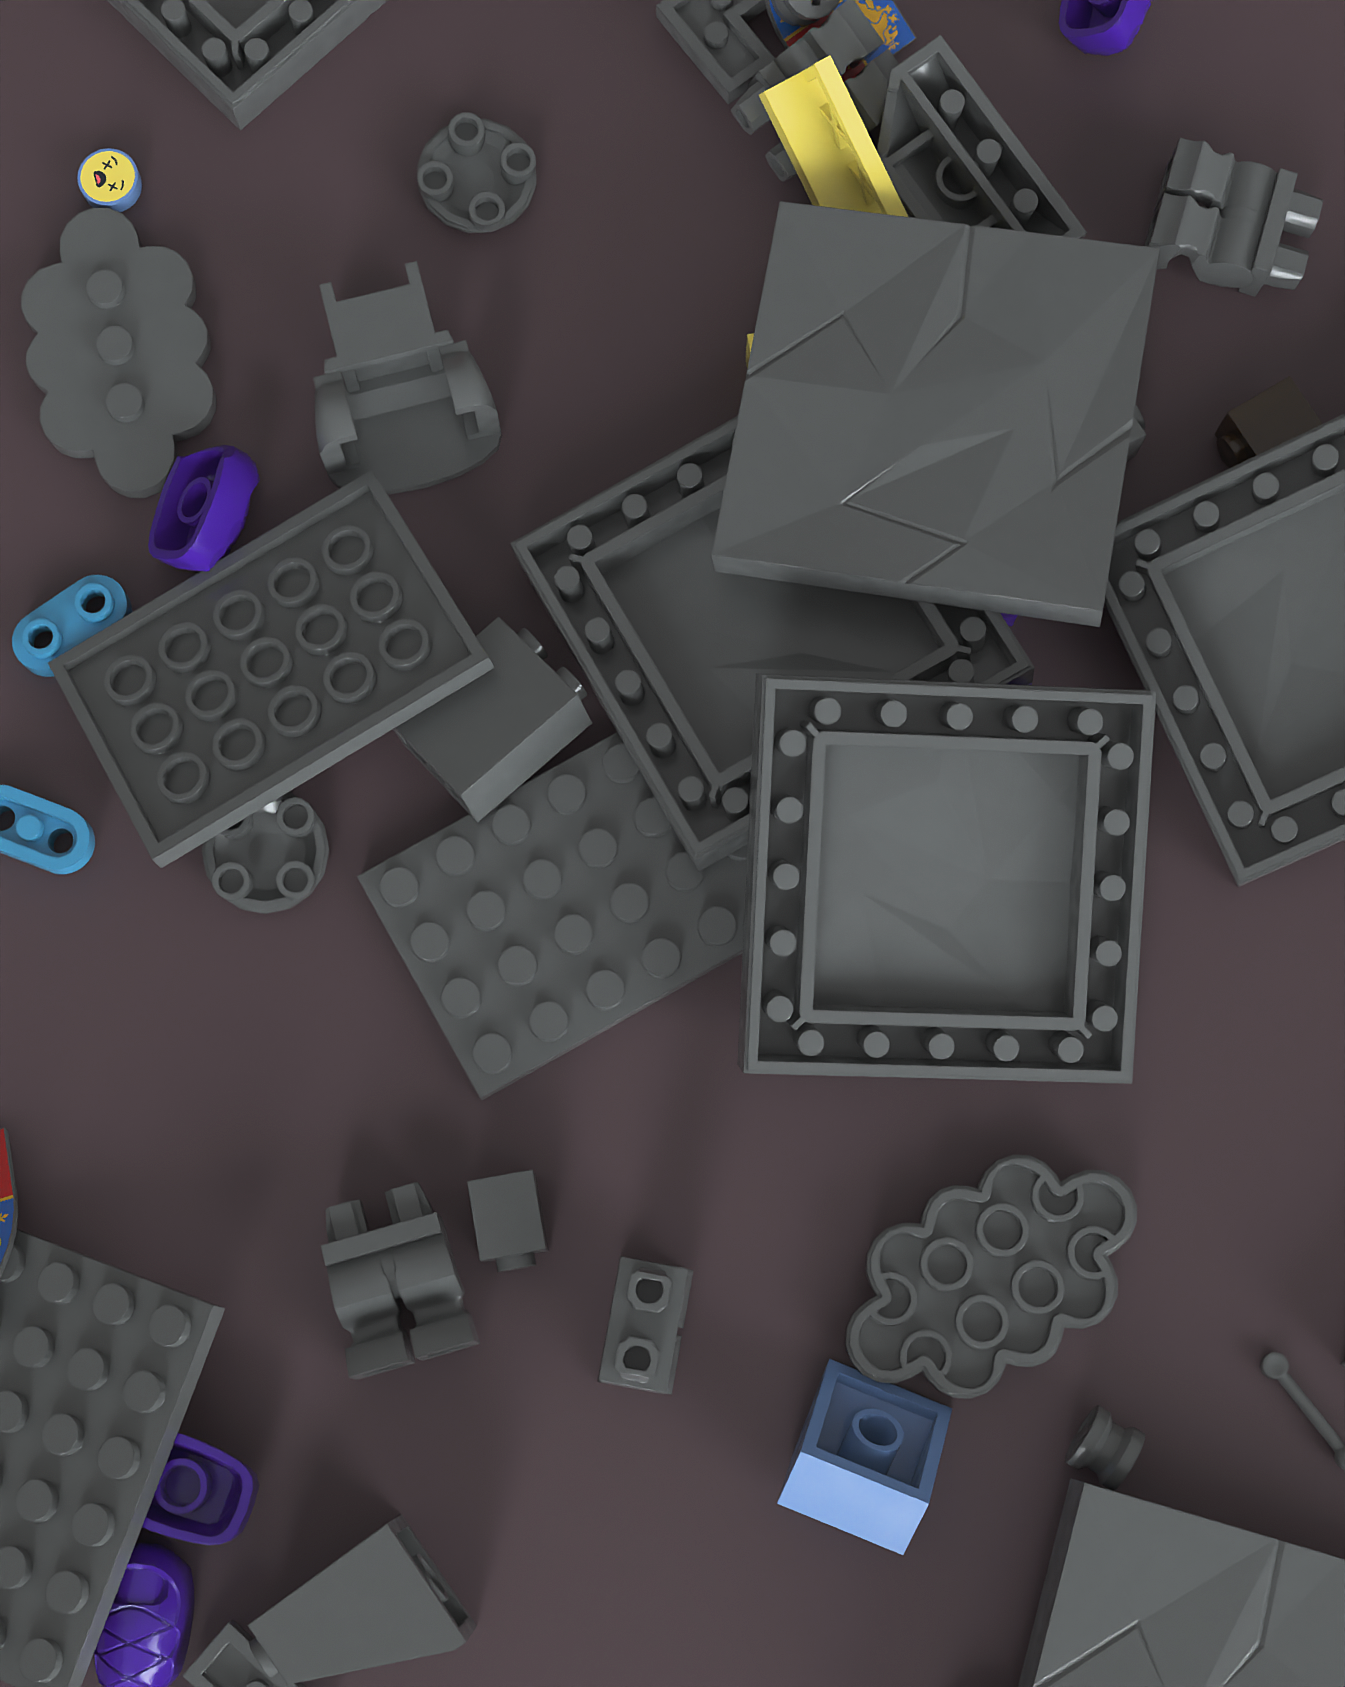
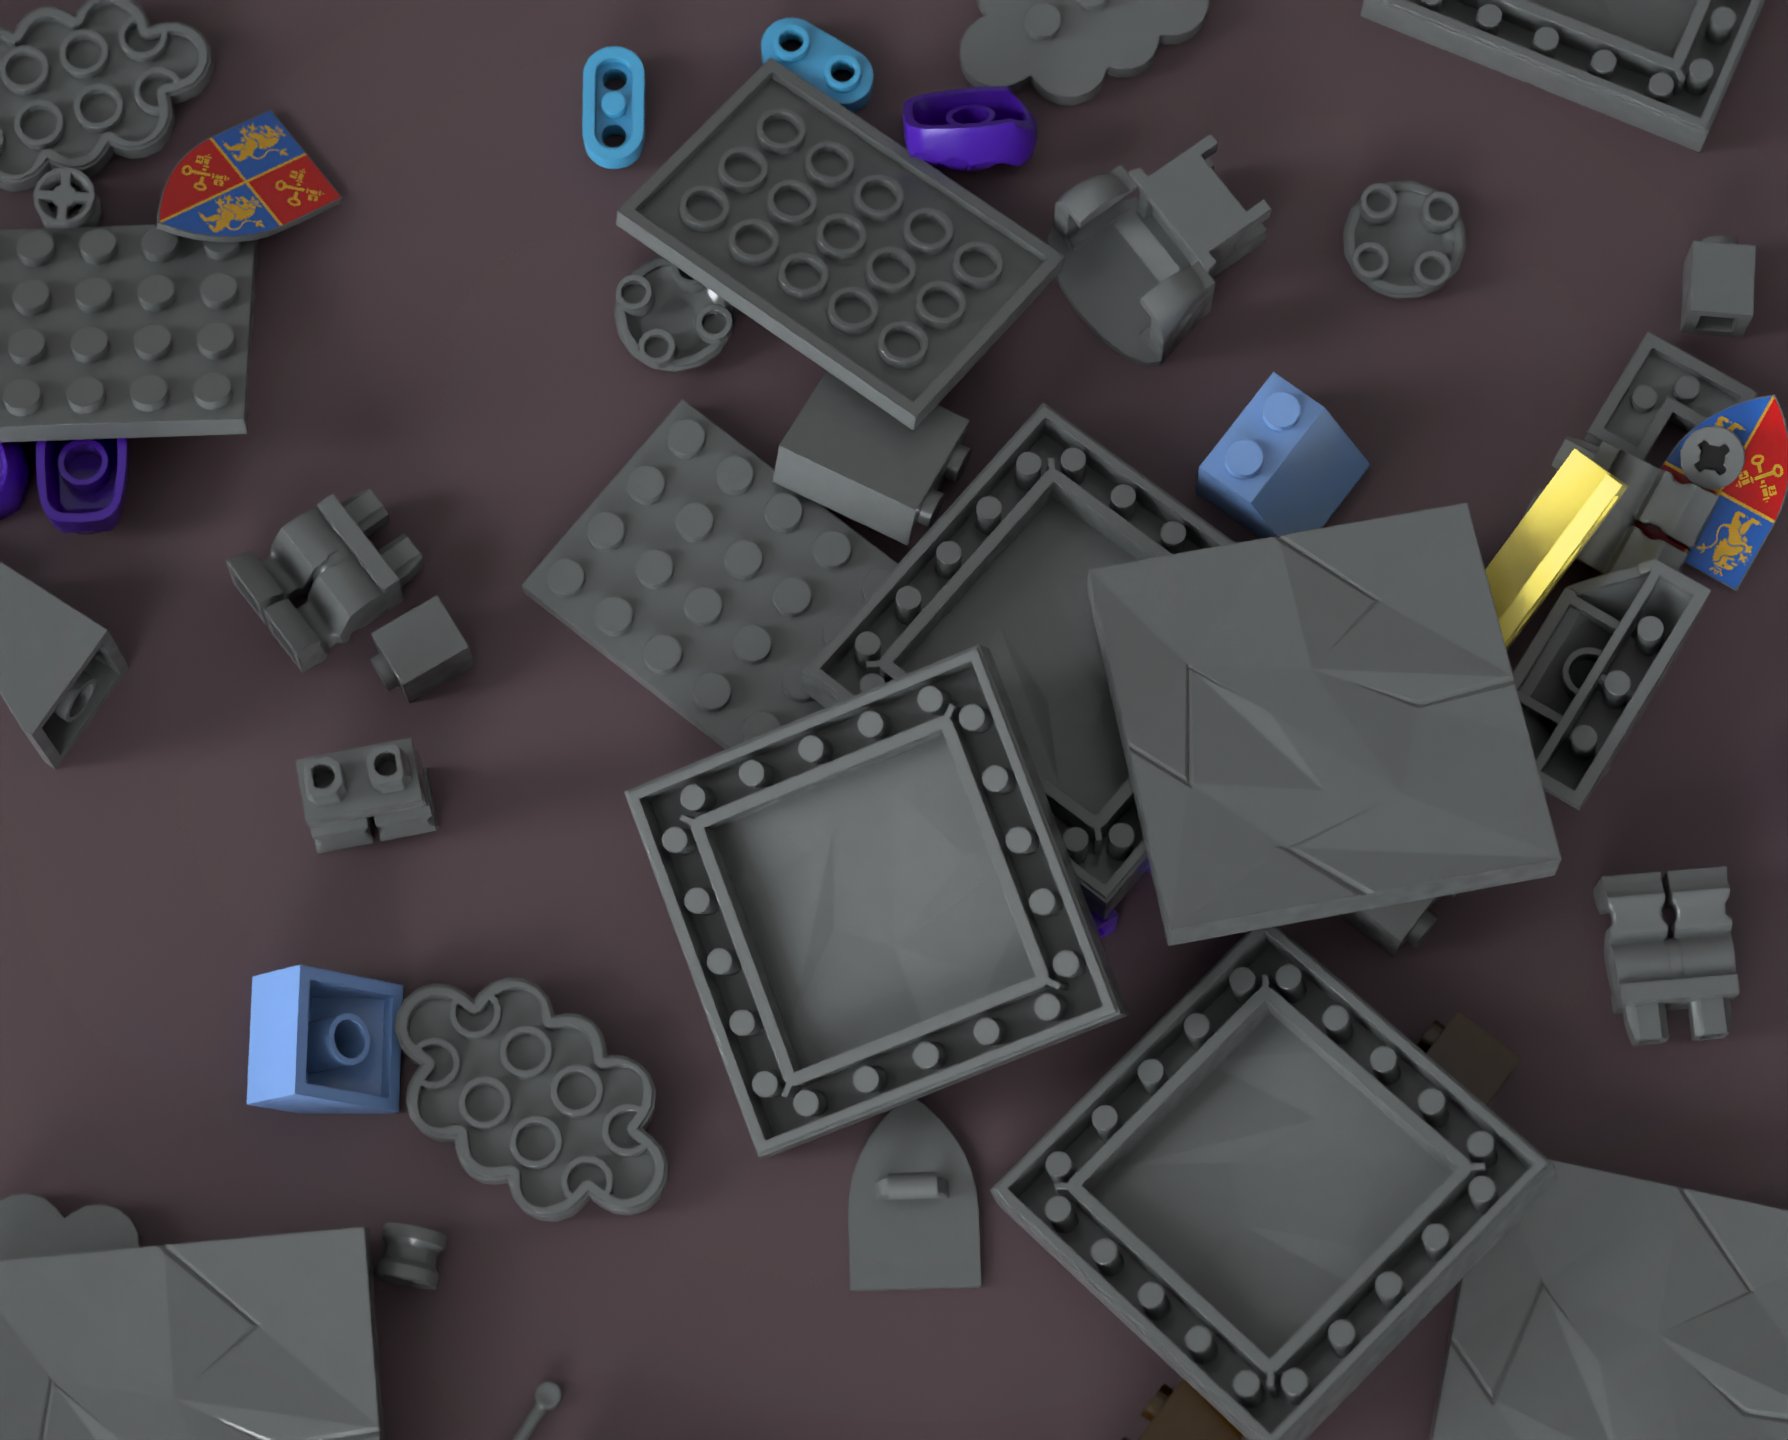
camera: 70 degrees right, 5 degrees down
(650, 366) = (1281, 464): none -> medium blue slope
(1220, 965) = (913, 1208): none -> dark grey shield

